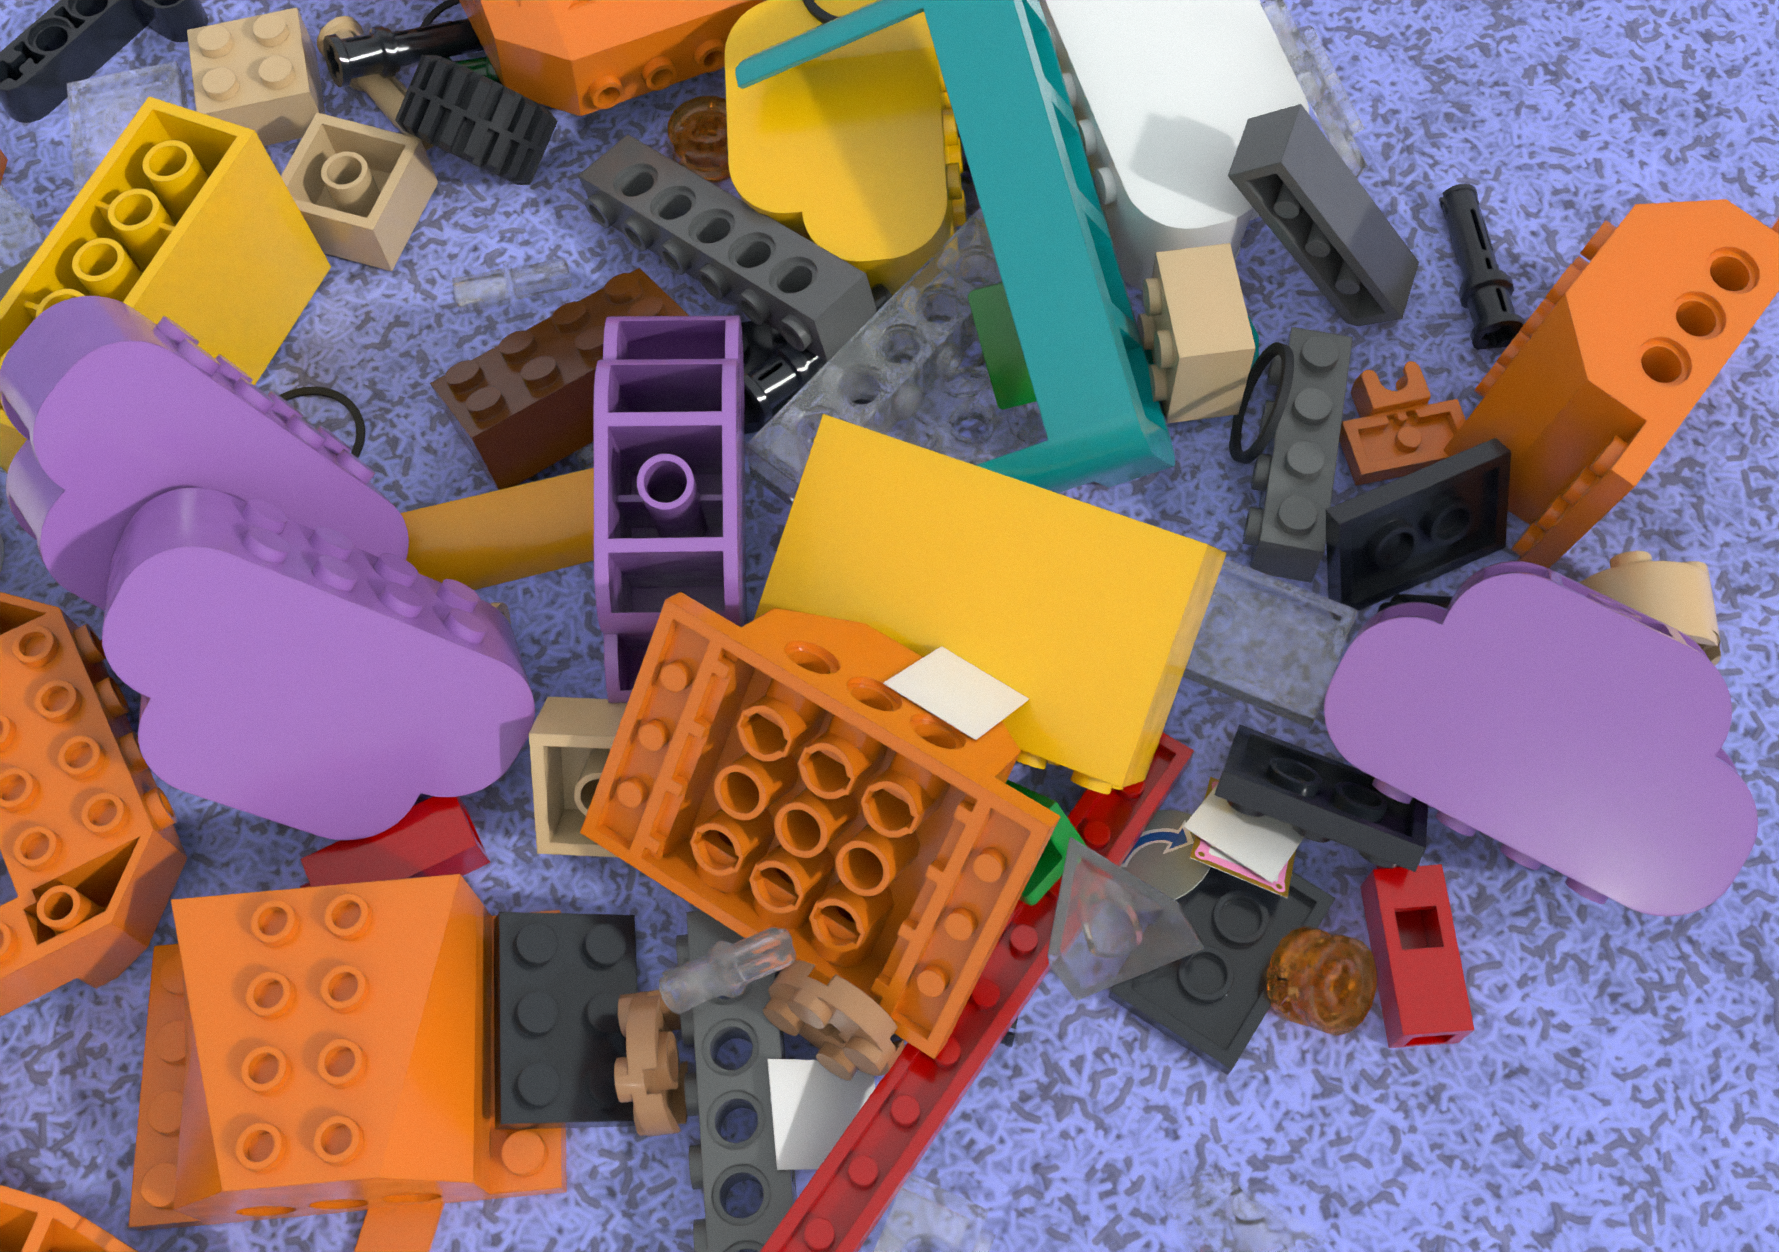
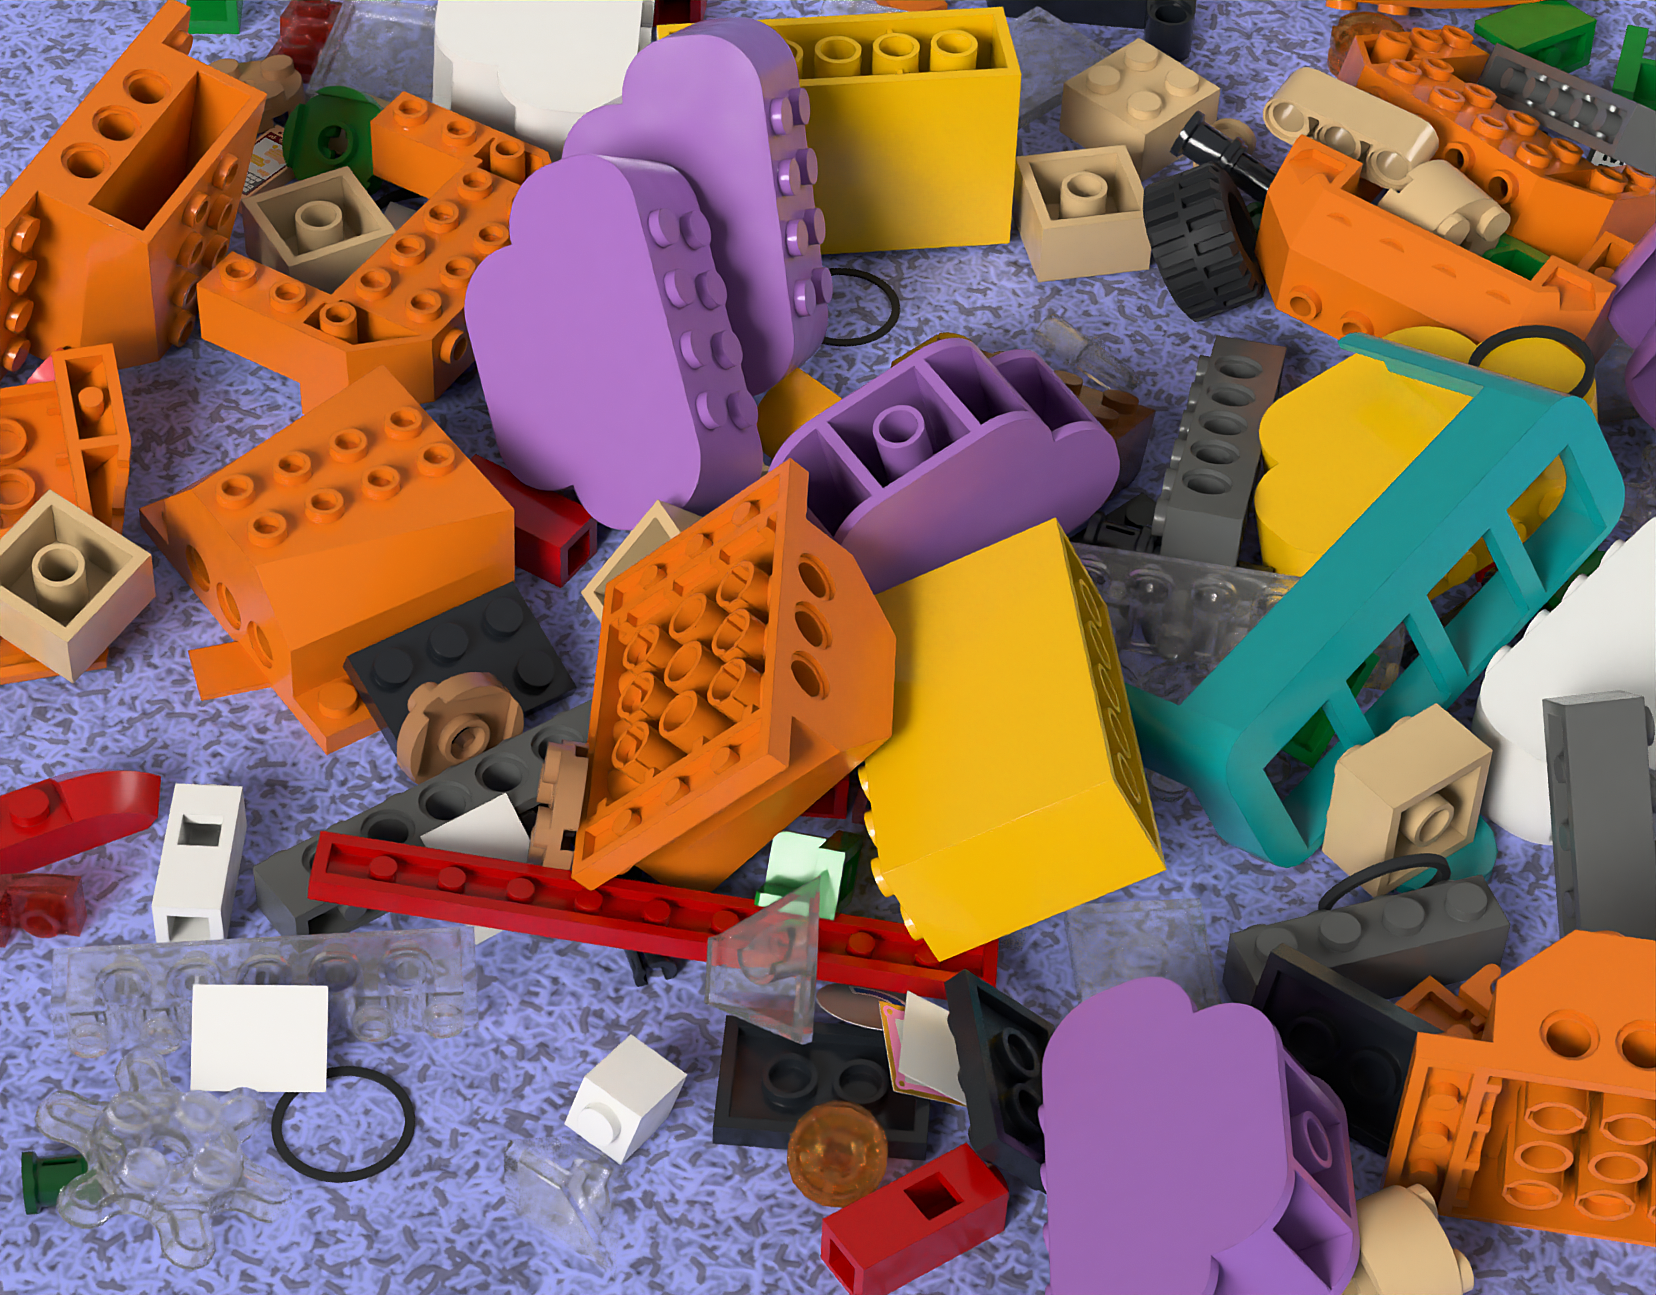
camera: 55 degrees right, 20 degrees down
(726, 969) = (554, 717): clear axle -> none
(957, 692) = (871, 705): white sticker -> none
(1172, 1135) = (625, 1099): none -> white brick

